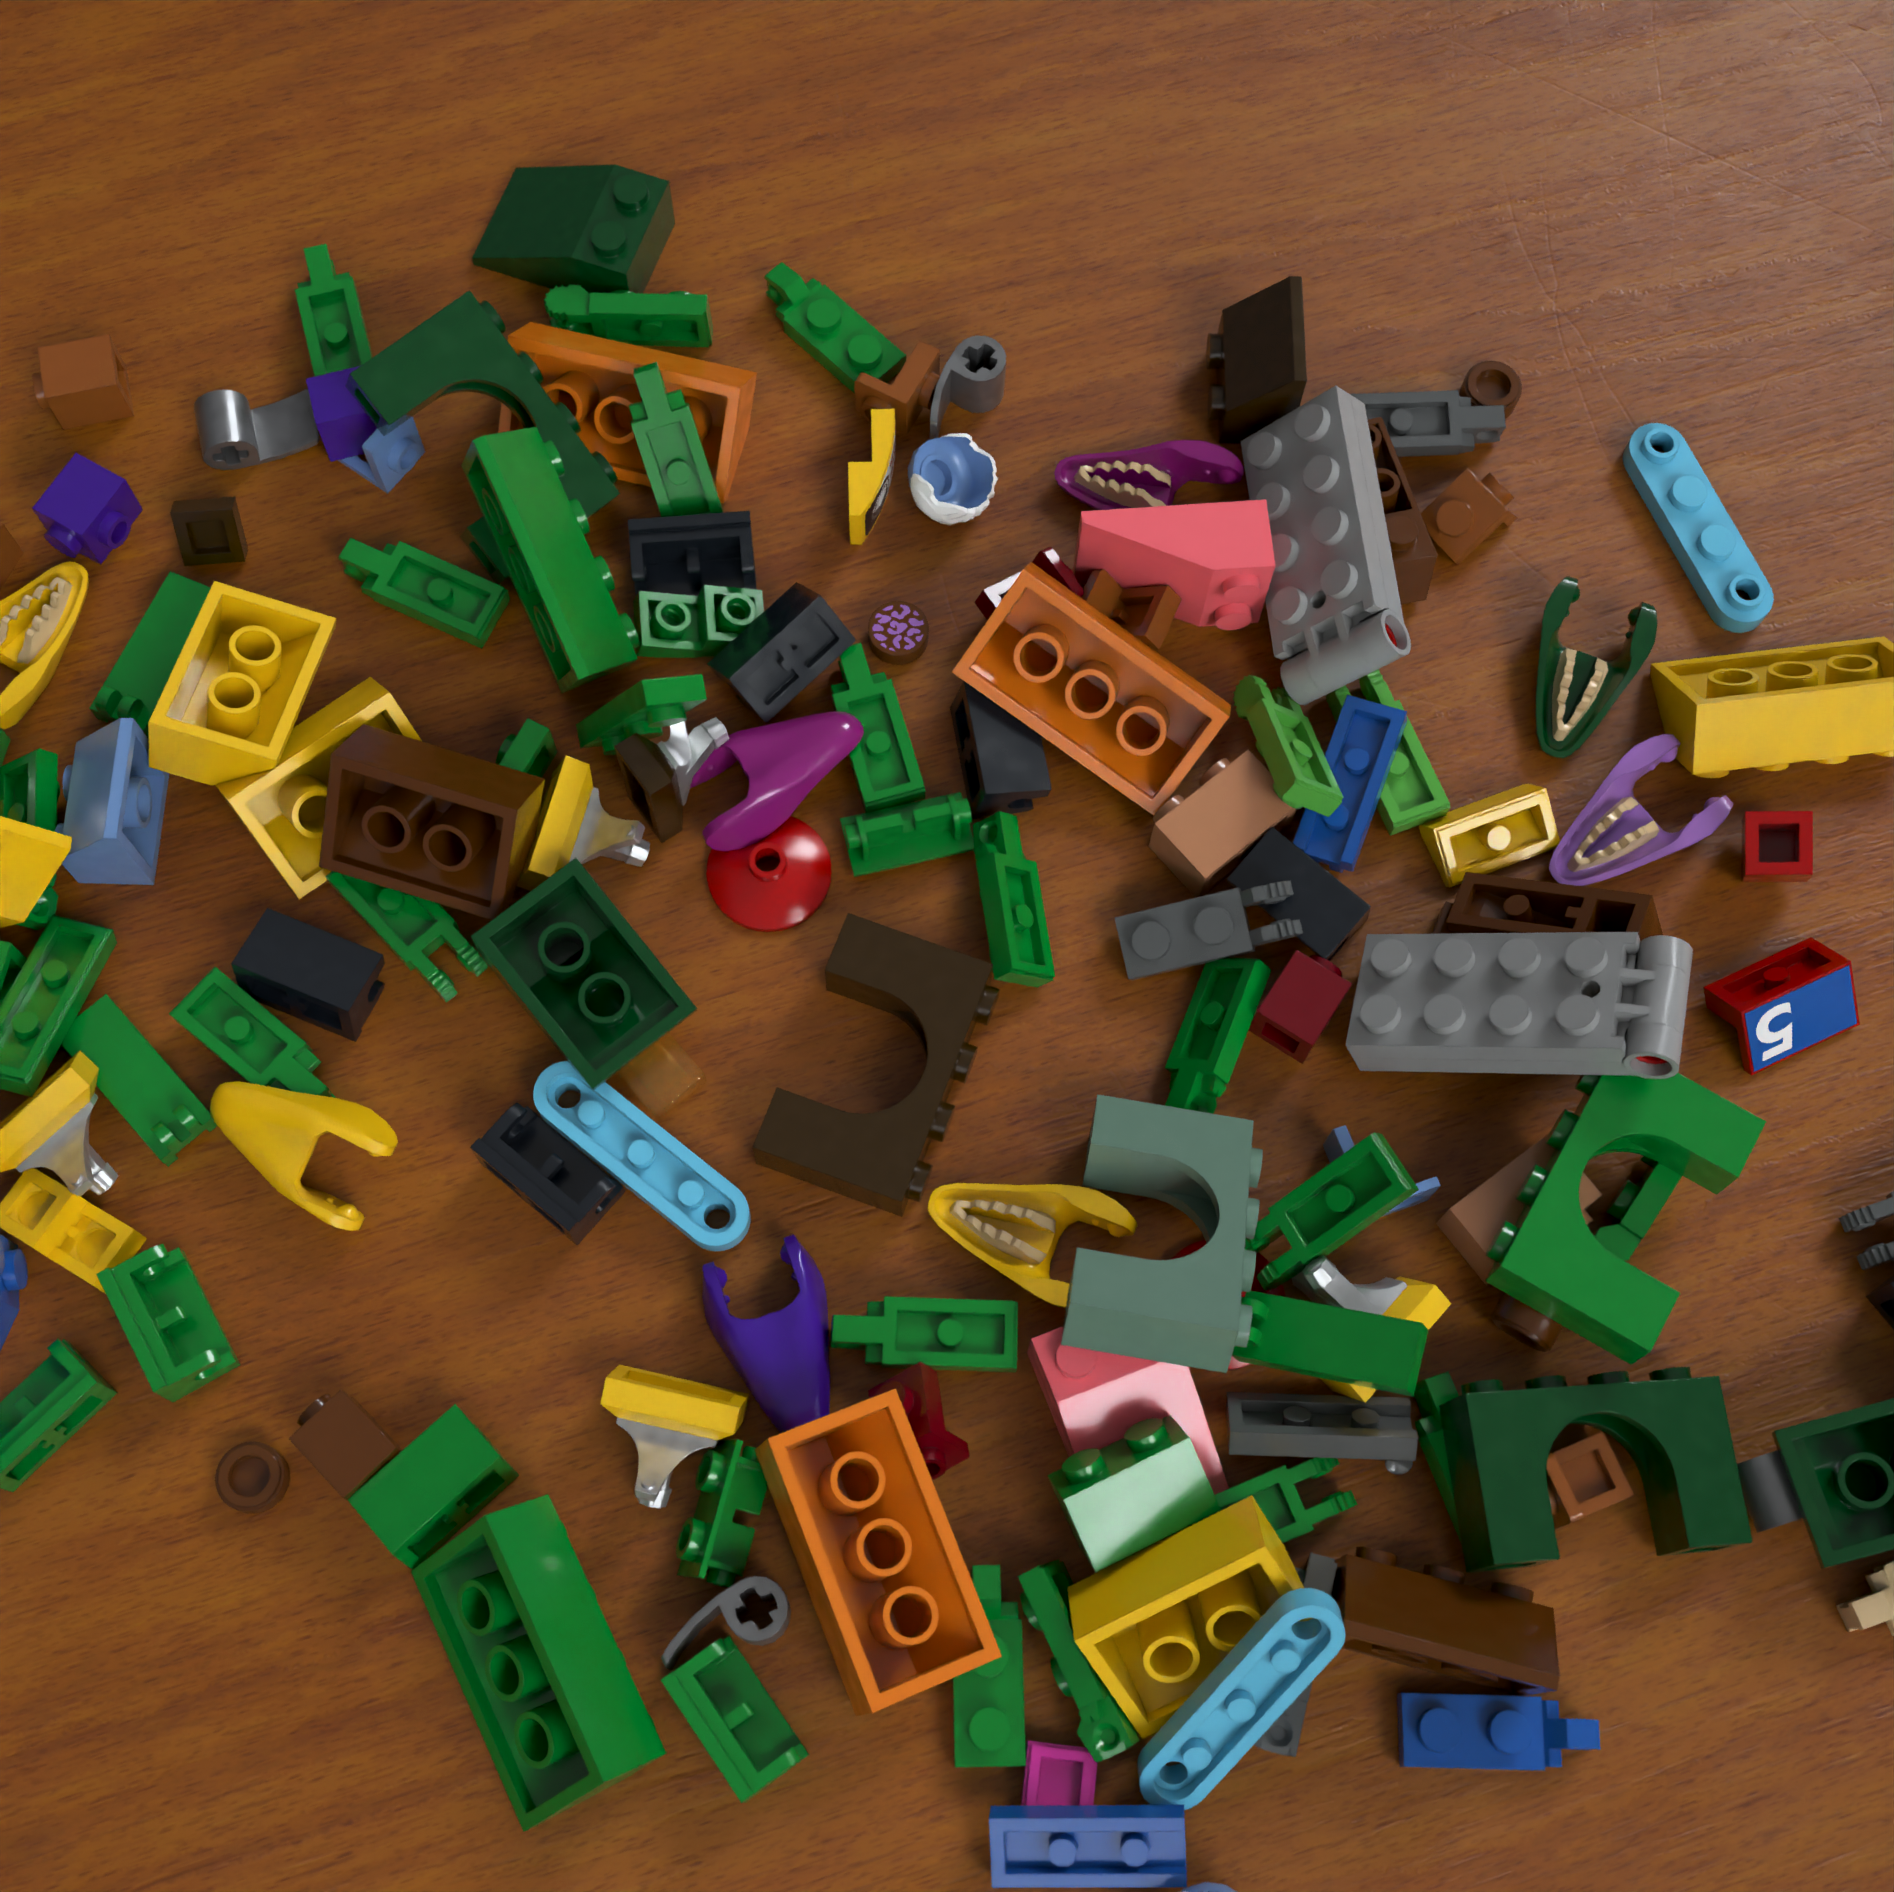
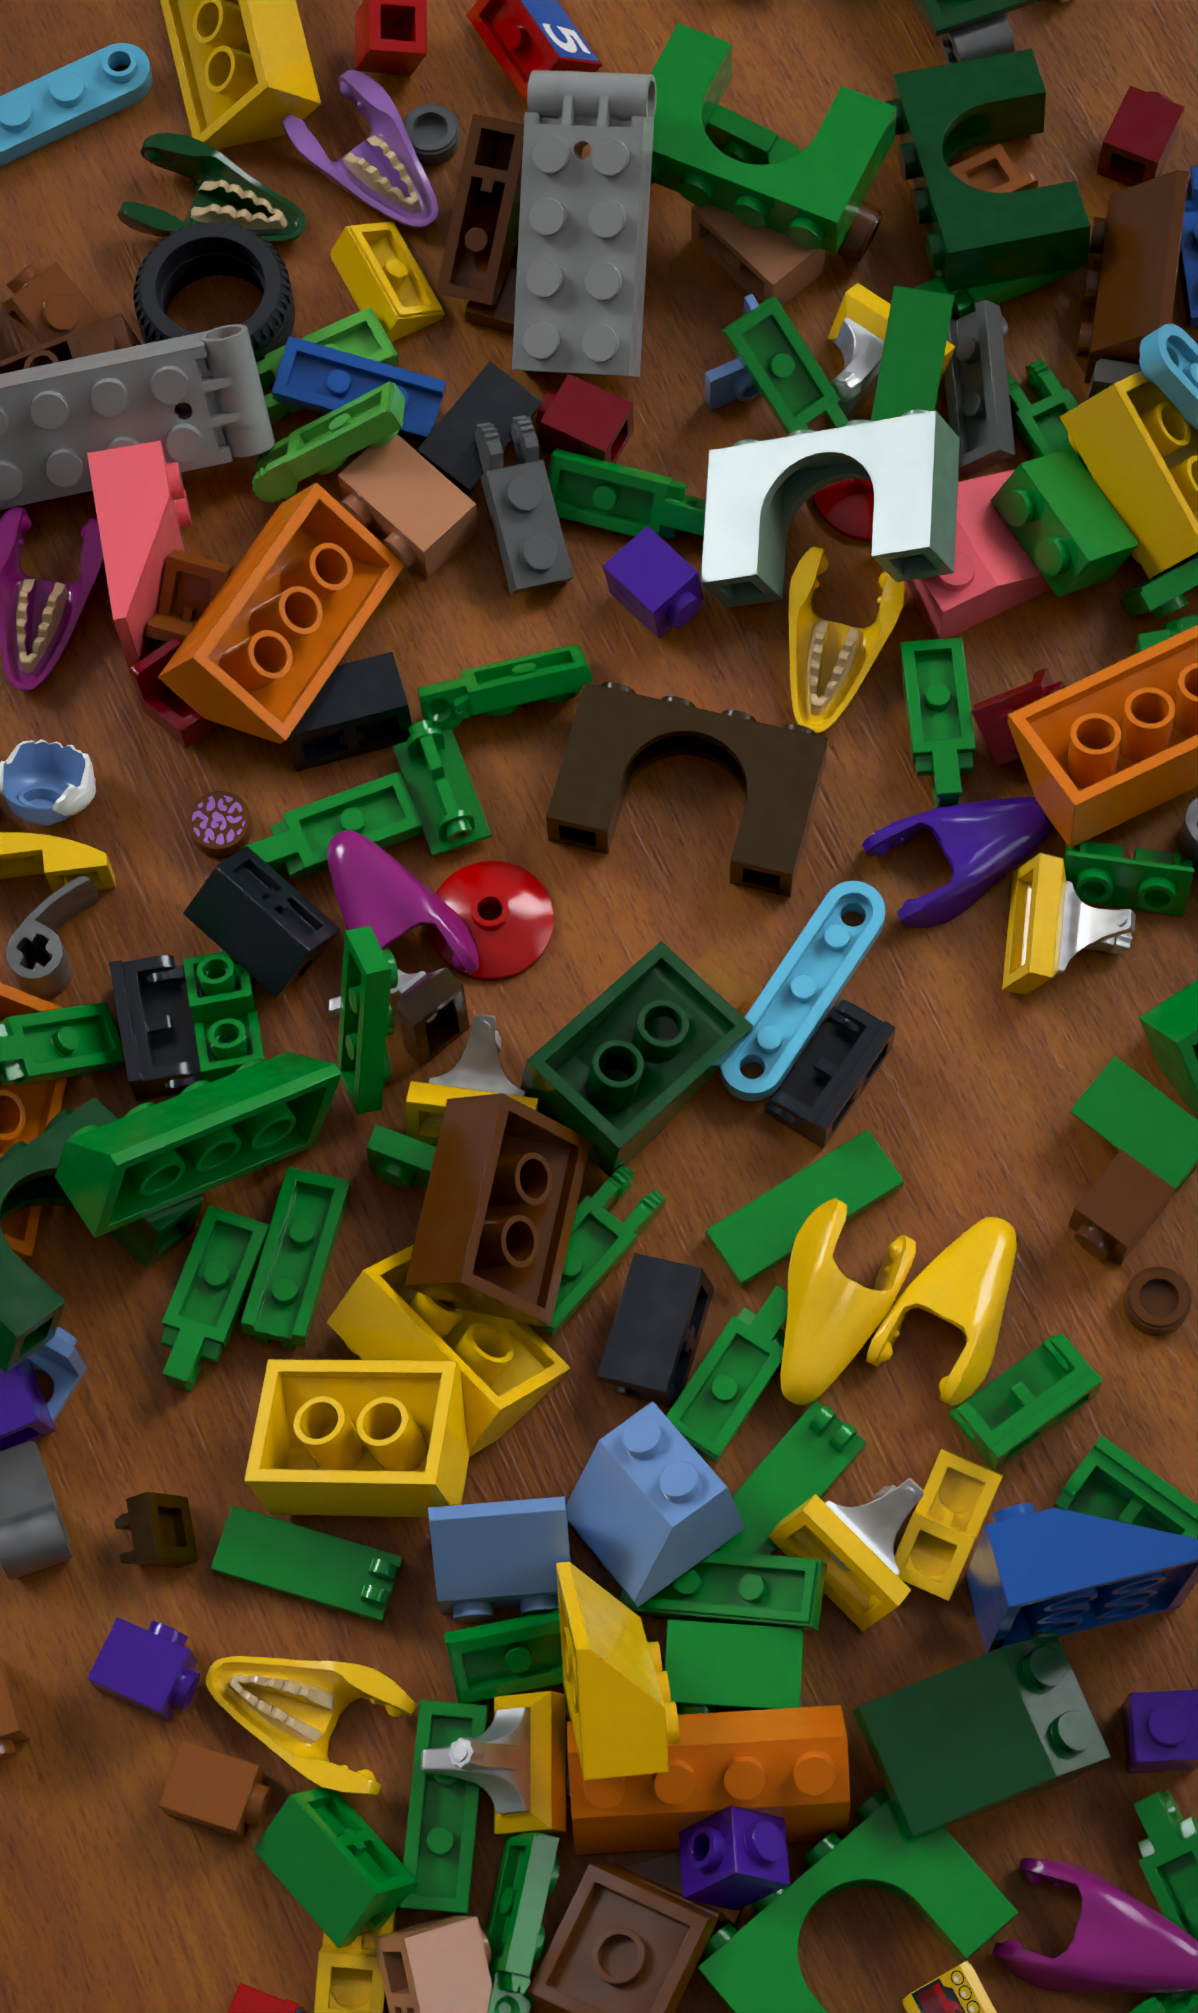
camera: 90 degrees left, 0 degrees up
(130, 948) = (650, 1505): none -> medium blue slope
(289, 1274) = (965, 1288): none -> yellow animal
(426, 1150) = (766, 1228): none -> green tile
(448, 663) = (295, 1258): none -> green hinge
(780, 464) = (38, 939): none -> flat silver panel
(1105, 1050) = (654, 583): none -> dark purple brick
(1498, 618) = (212, 251): none -> black tyre
(1641, 1667) = (1140, 137): none -> dark red brick
(1671, 885) = (433, 133): none -> dark grey tile

